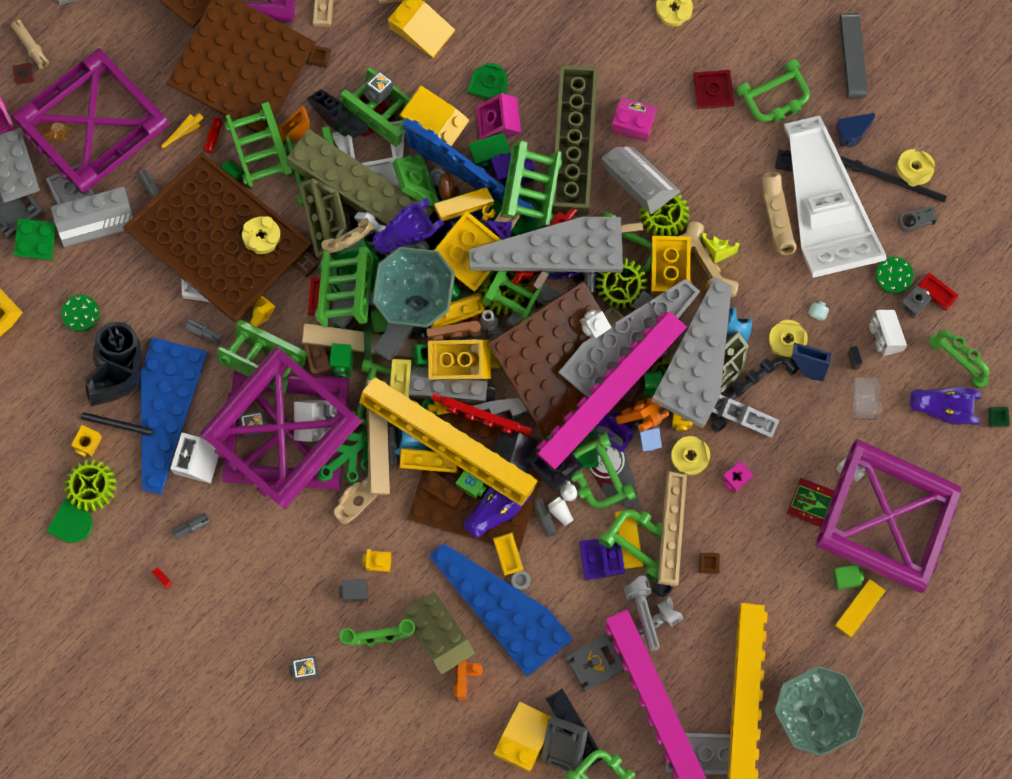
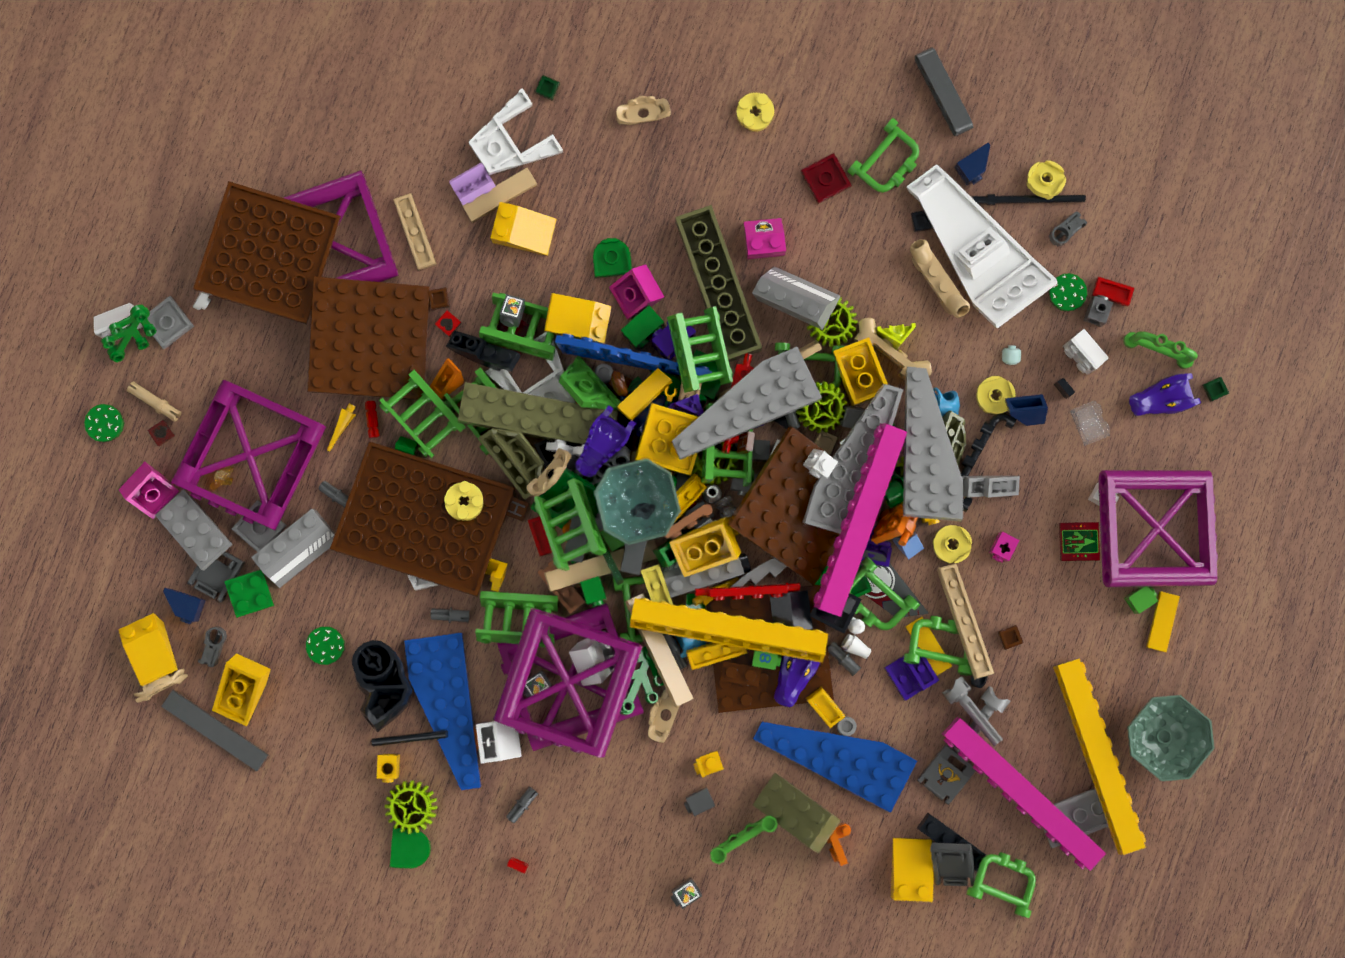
camera: 25 degrees left, 10 degrees up
(318, 80) = (448, 323): none -> red tile

